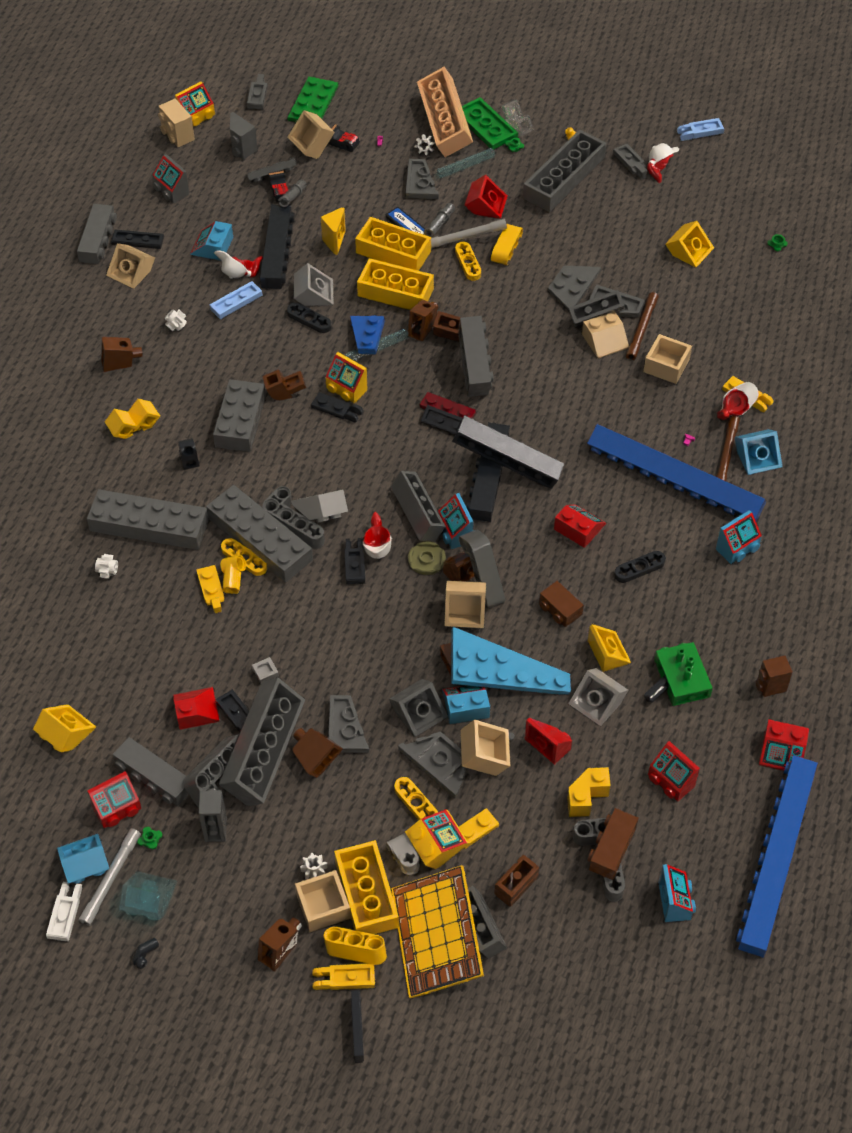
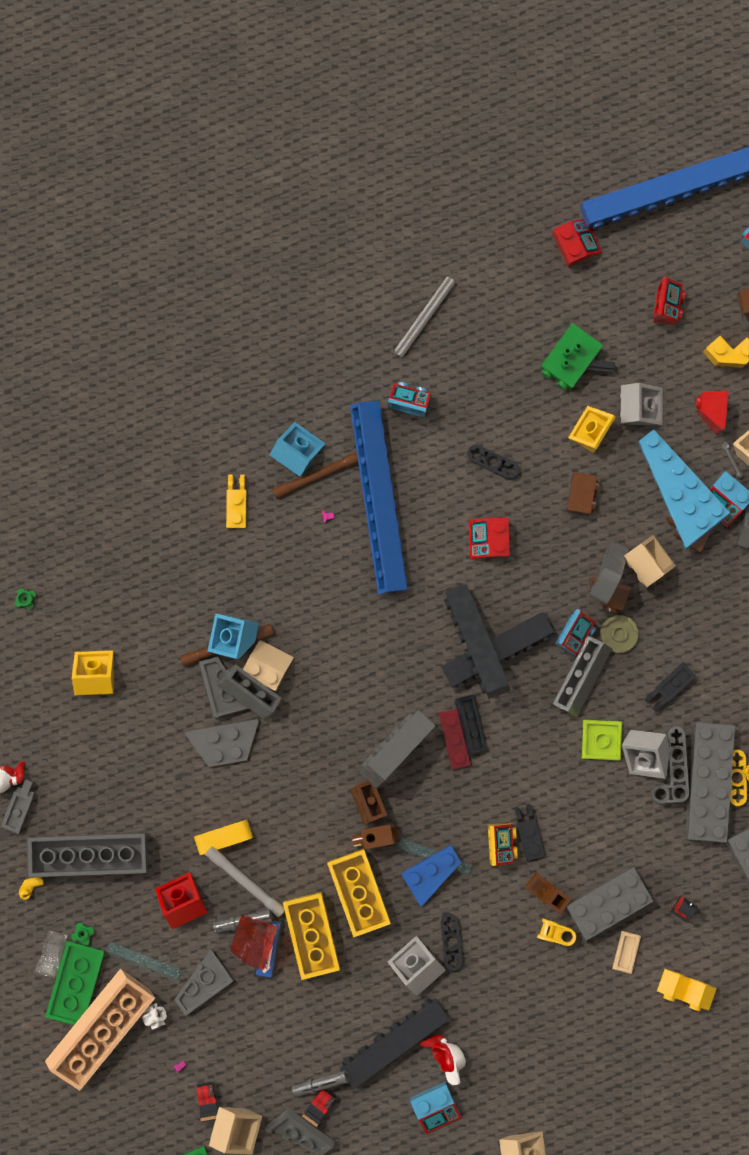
camera: 130 degrees left, 30 degrees up
(118, 353) = (639, 1069): reddish brown torso -> none
(175, 320) = (552, 1054): white gear -> none
(195, 408) = (626, 952): none -> tan tile
(236, 300) = (484, 1023): light blue plate -> none
(251, 373) = (555, 932): none -> yellow piece
(333, 229) = (339, 1002): yellow slope -> none
(360, 493) = (601, 740): none -> lime tile
(377, 539) = (643, 680): red hair -> none
(418, 212) = (253, 941): none -> clear red slope
(469, 255) = (266, 872): yellow beam -> none
(646, 323) = (232, 636): none -> dark azure slope
(667, 358) = (256, 591): tan piece -> none
(738, 400) = (260, 500): red hair -> none
(774, 676) = (525, 285): reddish brown brick -> none
(802, 601) = (424, 317): none -> light grey axle

